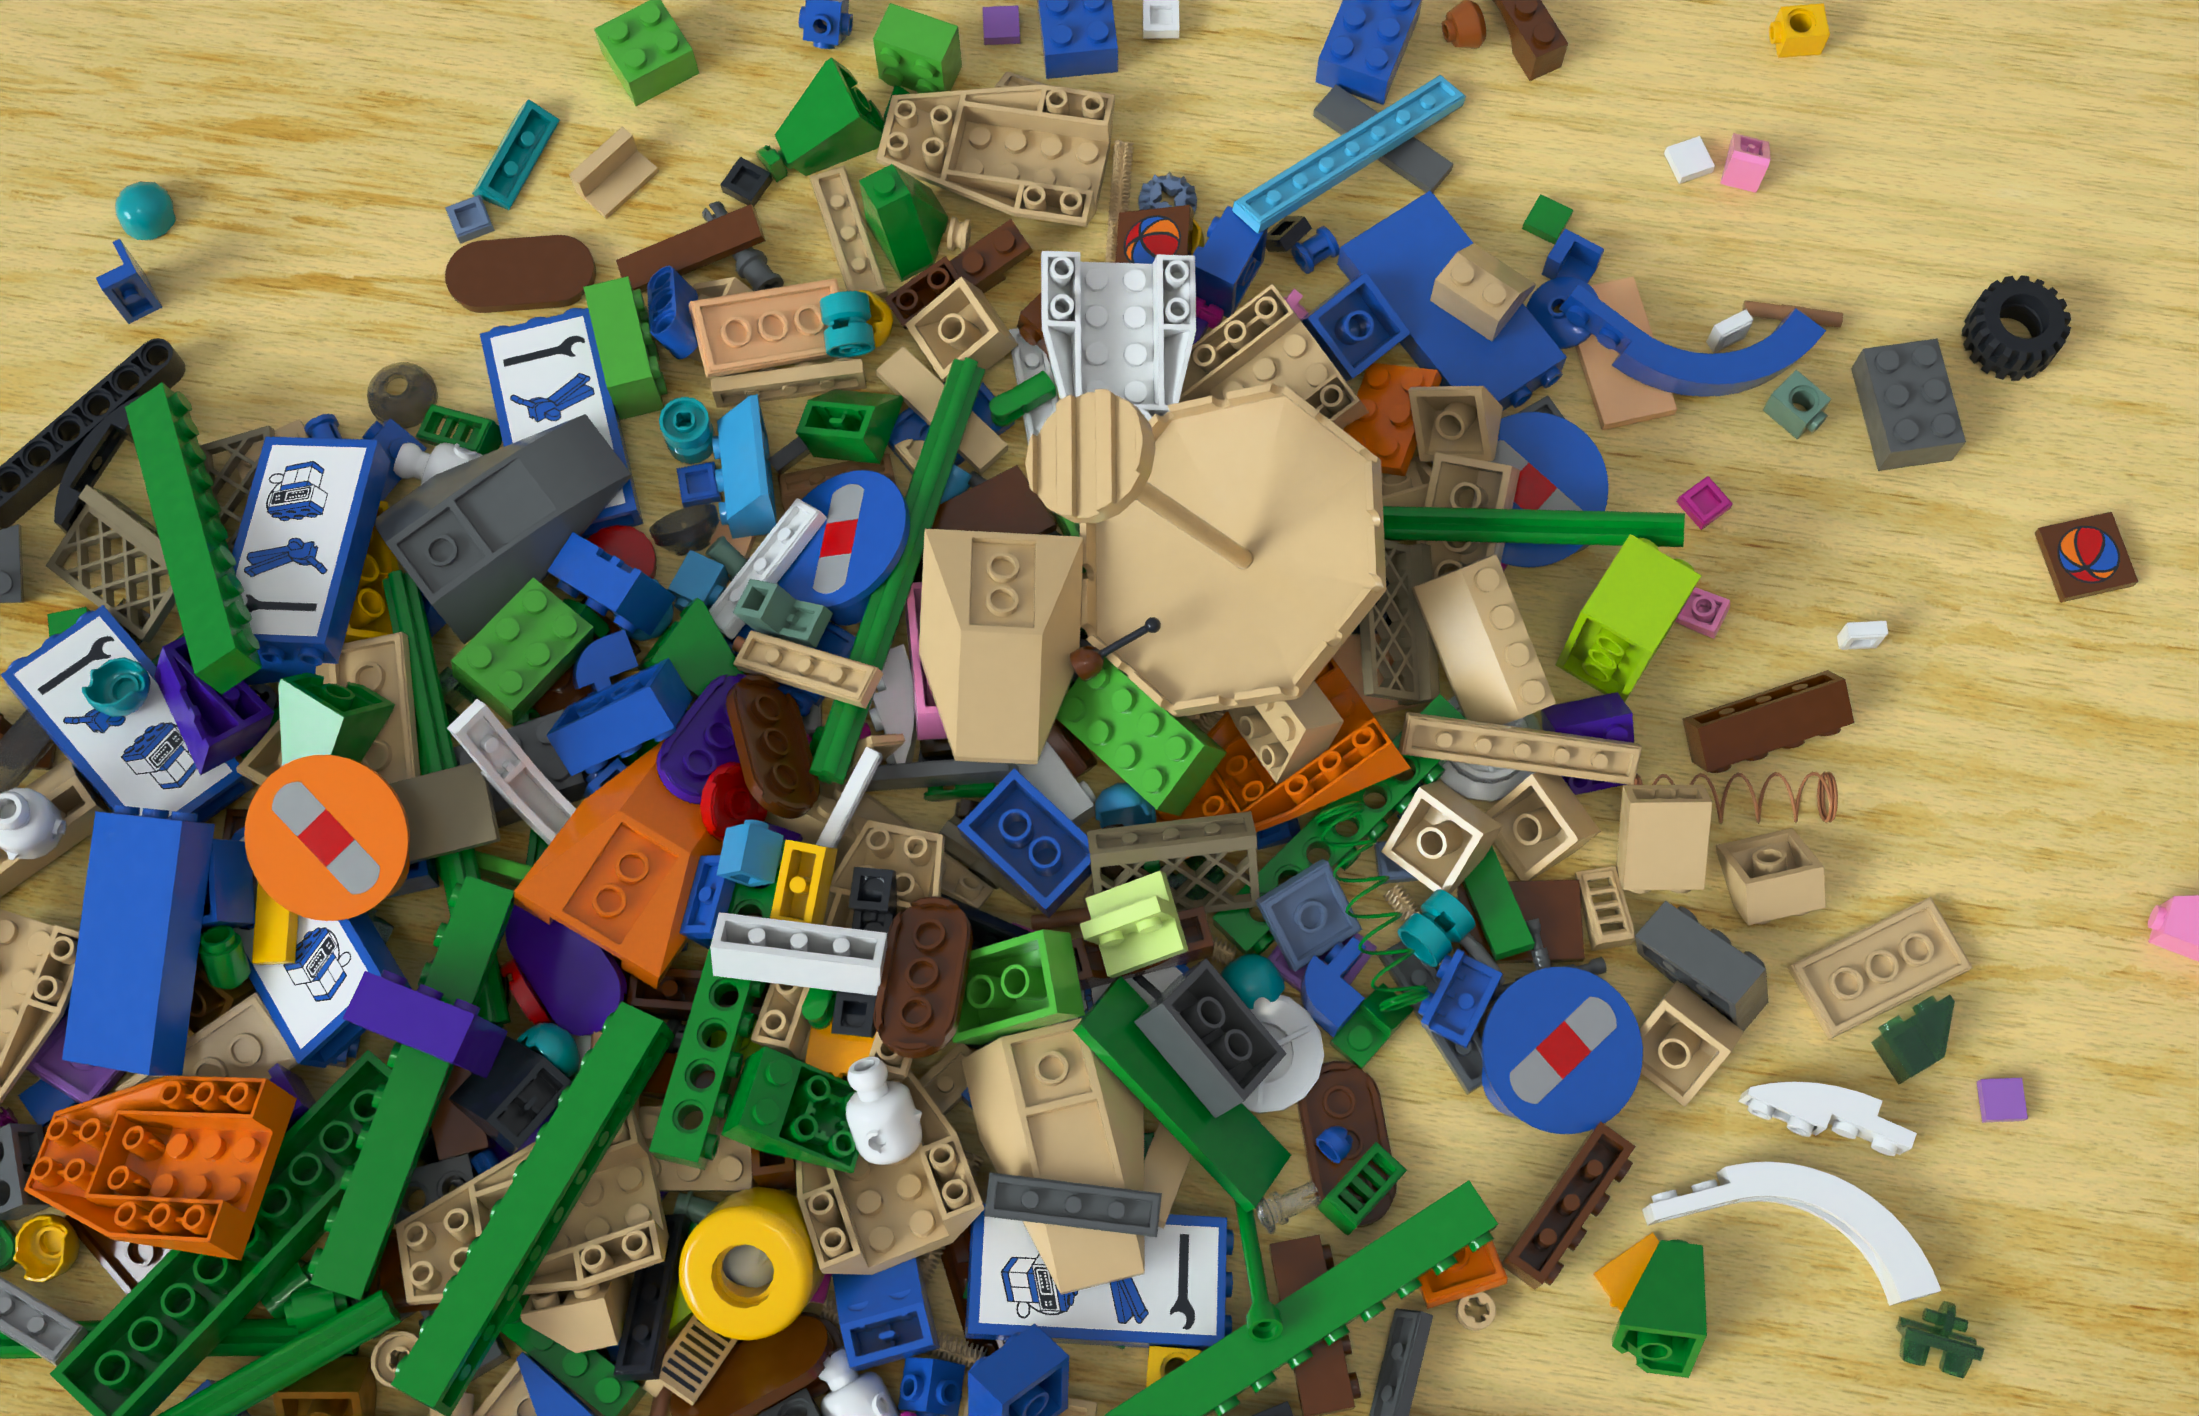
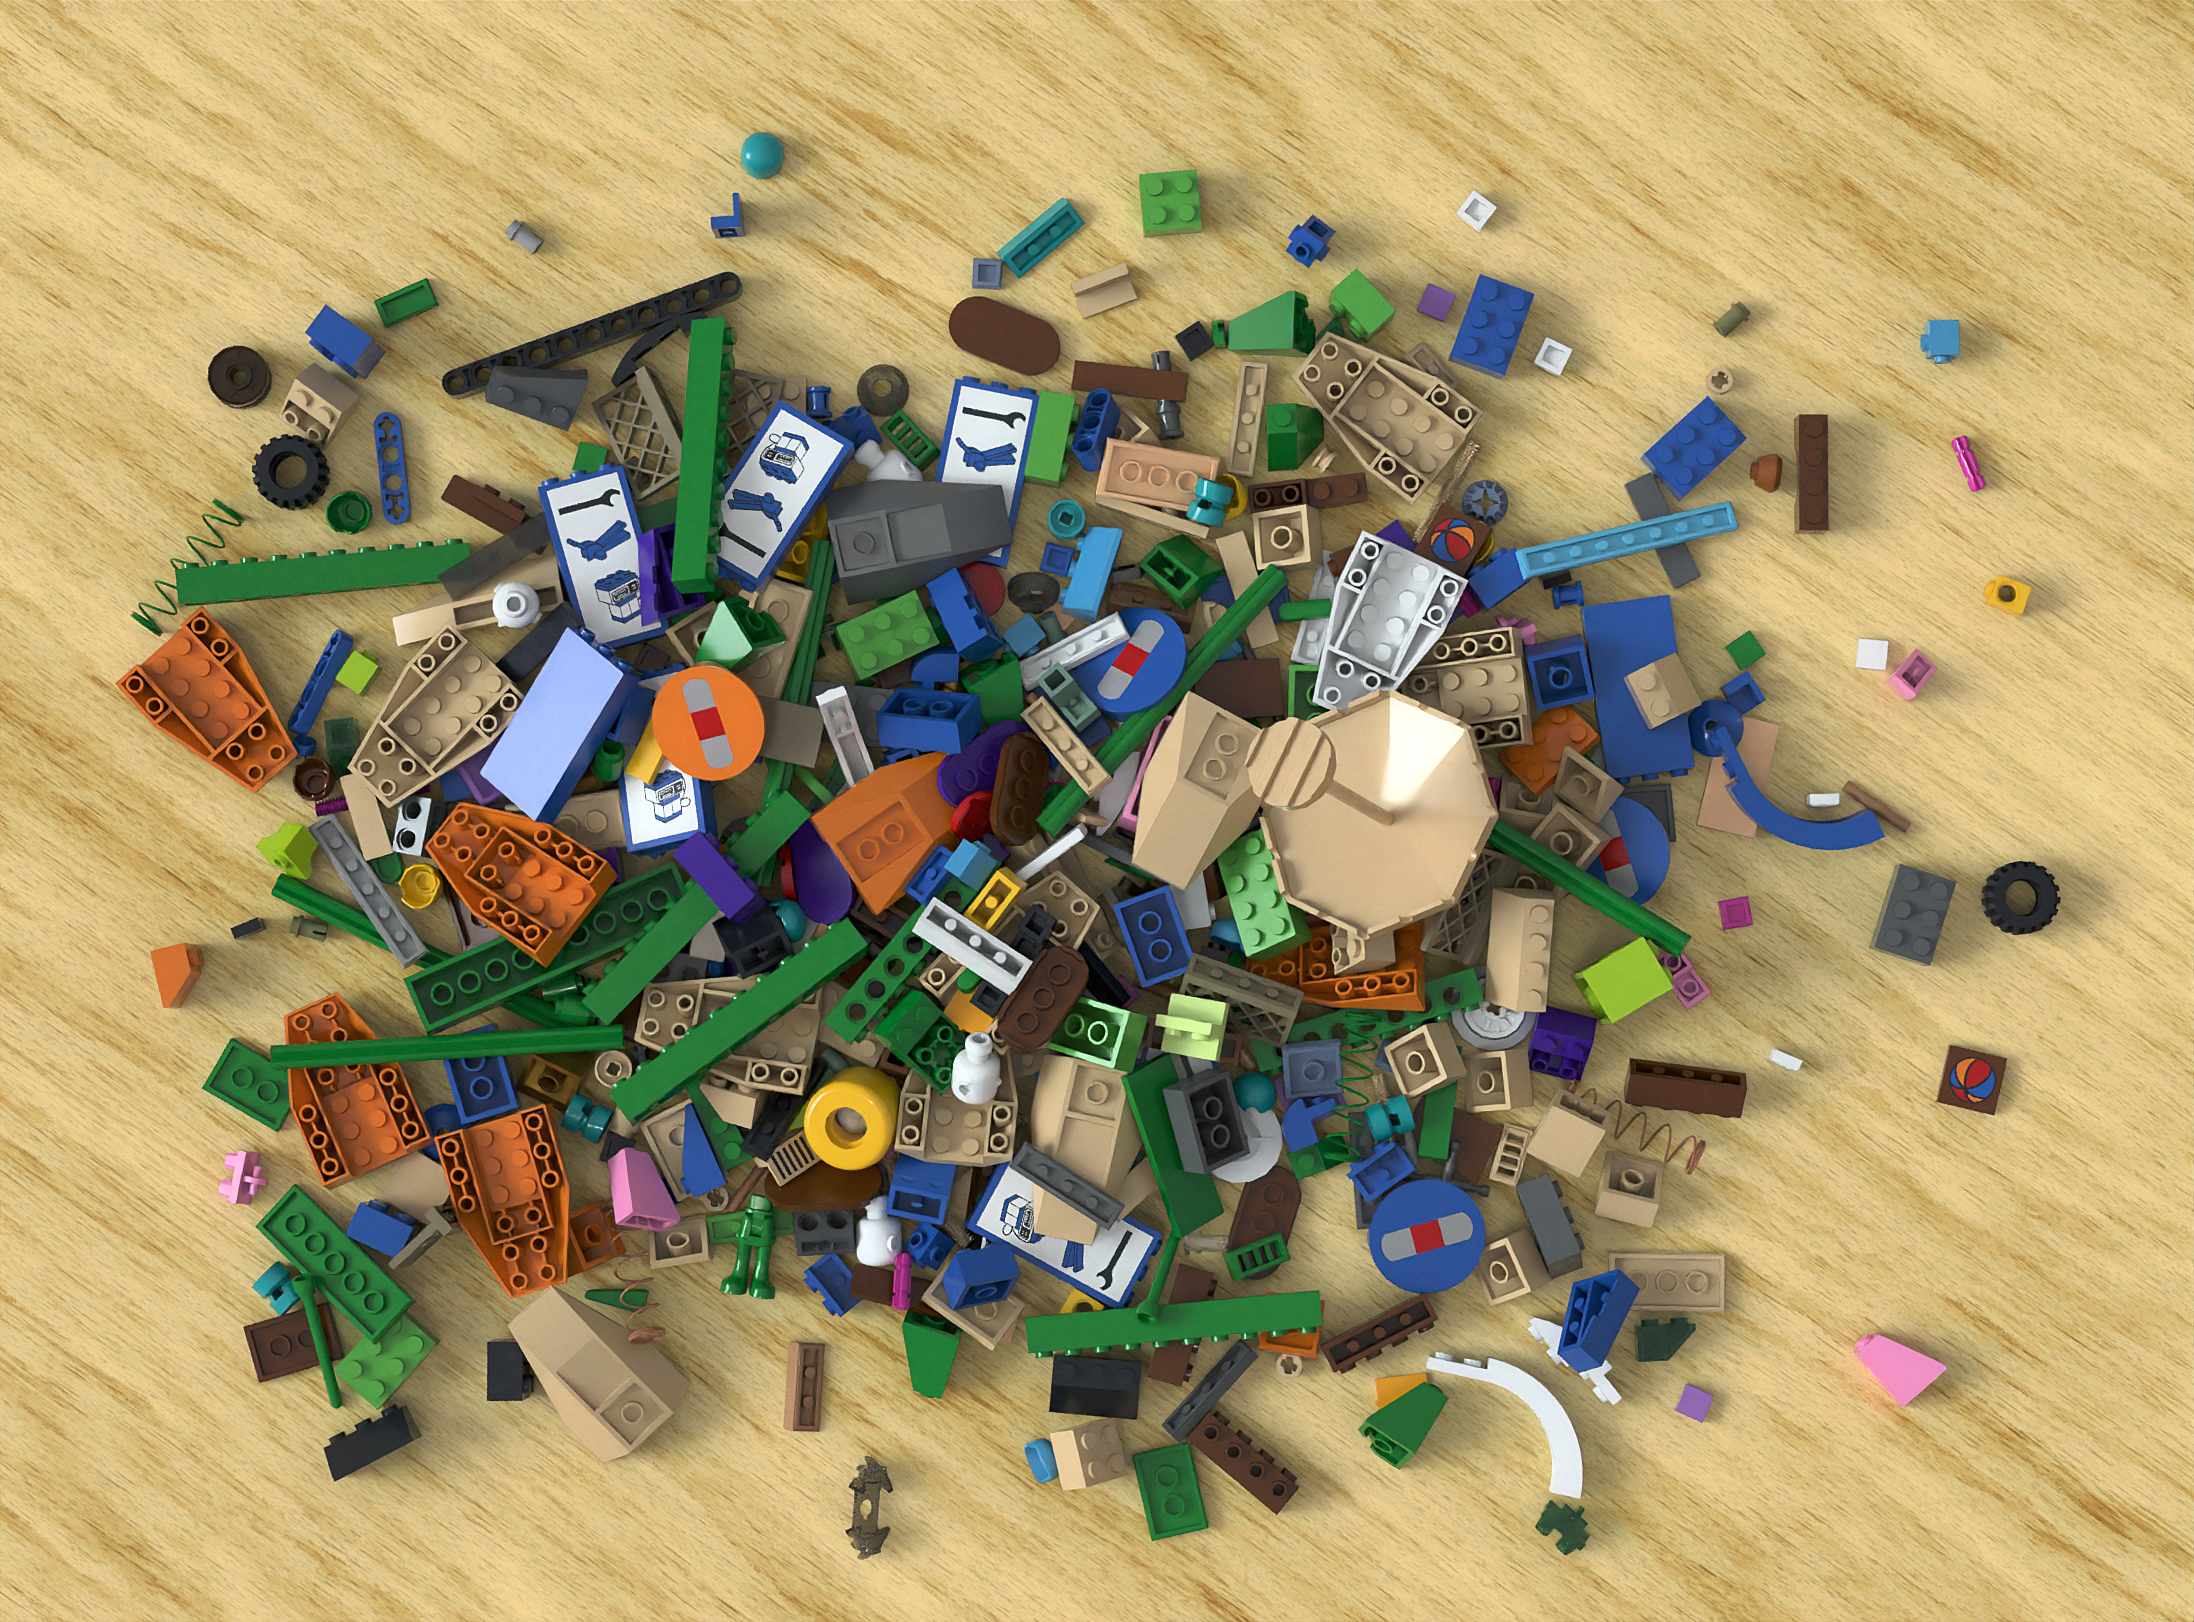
camera: 30 degrees right, 15 degrees up
(68, 887) = (538, 643): none -> black tile
(118, 687) = (611, 537): teal hair -> none
(1089, 660) = (1251, 836): hinge -> none
(1335, 1143) = (1254, 1220): blue hinge -> none
(1519, 748) = (1505, 1030): tan tile -> none
(1801, 391) = (1842, 865): sand green brick -> none
(1829, 1045) = (1594, 1318): none -> blue wedge

